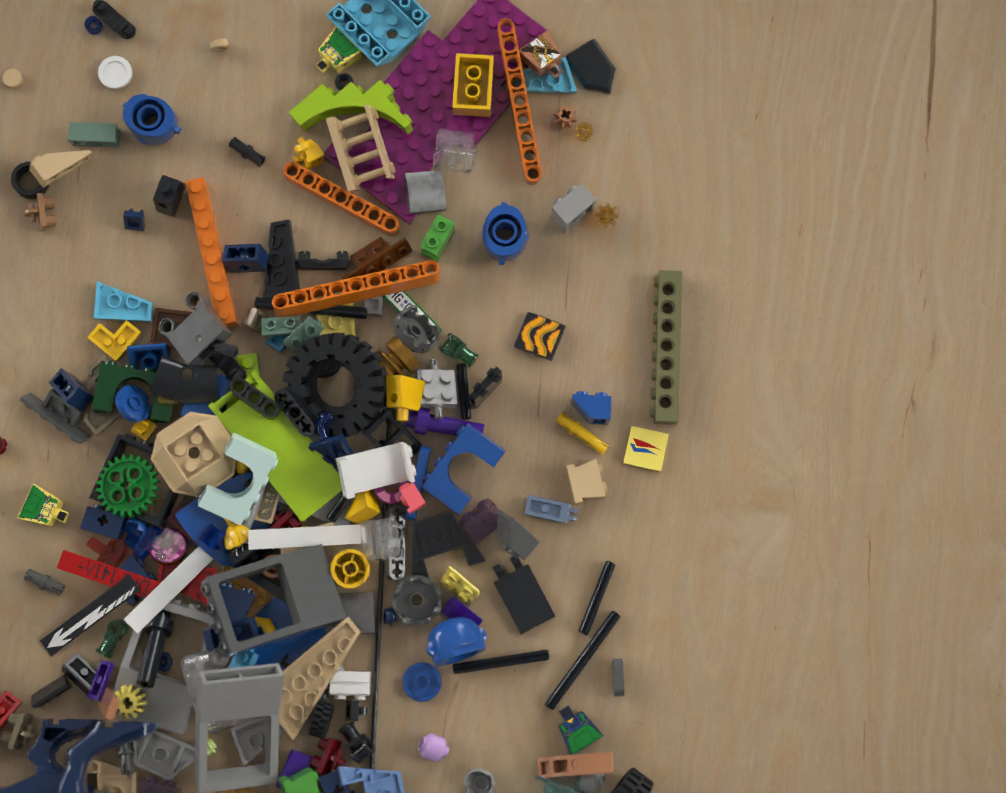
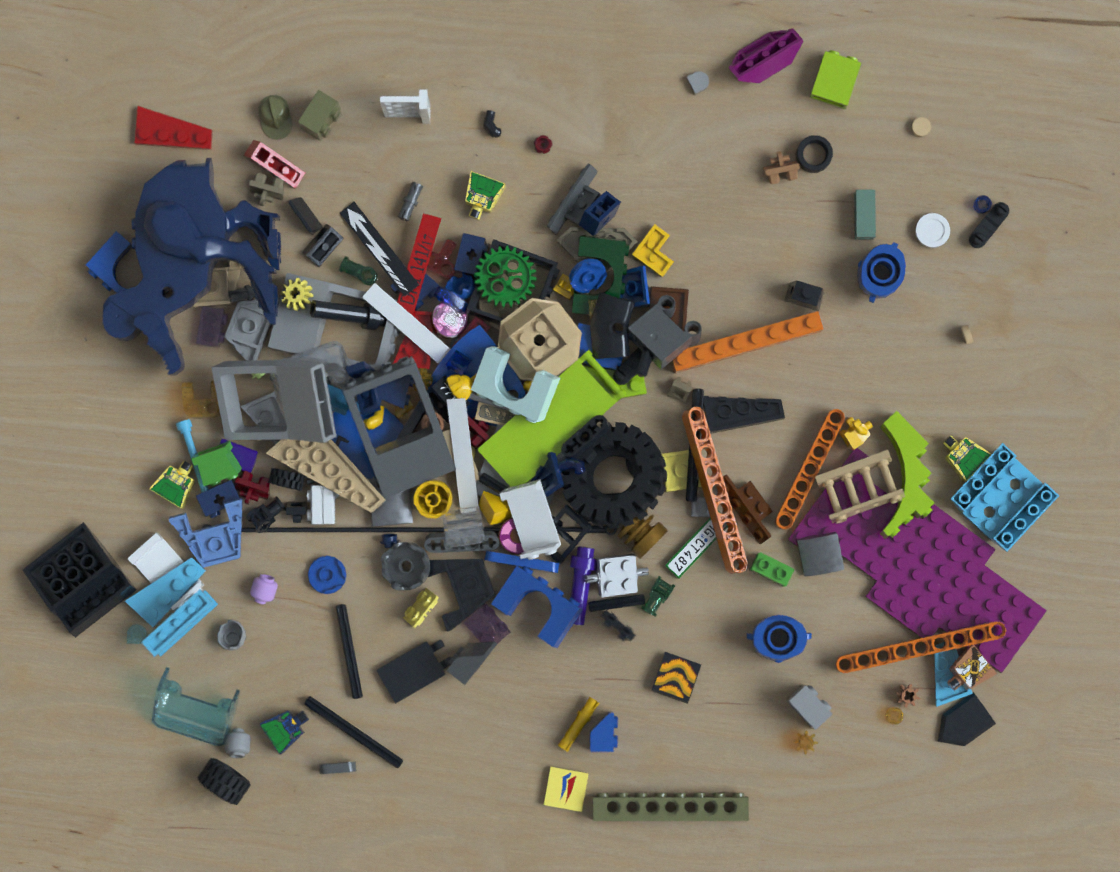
camera: 85 degrees right, 5 degrees up
(56, 165) = (828, 178): tan slope -> none
(100, 680) = (316, 264): dark purple slope -> none
(109, 703) = (293, 276): nougat tile -> none
(120, 306) = (688, 254): medium azure wing -> none
(134, 220) = (777, 261): dark blue tile -> none
(168, 662) = (337, 327): dark blue plate -> none
(245, 258) = (741, 376): dark blue brick -> none
(247, 151) = (855, 370): black pin -> none
(249, 390) = (594, 405): pearl dark grey beam -> none
(276, 342) = (659, 414): dark azure tile -> none
(279, 325) = (673, 417): sand green bracket -> none
(305, 263) = (742, 472): black piece -> none
(306, 330) = (665, 440): sand green bracket -> none
(342, 77) = (939, 461): black plate -> none
(403, 394) = (605, 544): yellow torso -> none
(411, 497) = (505, 556): coral brick -> none
(415, 330) = (672, 561): dark grey plate -> none
(454, 151) = (864, 583): clear brick -> none
(455, 608) = (392, 611): dark purple slope -> none
(455, 641) = (366, 606): blue piece -> none
(473, 85) = (934, 598): yellow brick -> none
(549, 509) = (500, 694): sand blue hinge -> none
(576, 765) = (250, 728): nougat slope -> none
(586, 481) = (529, 730): tan hips -> none
(597, 597) = (415, 744): black axle -> none

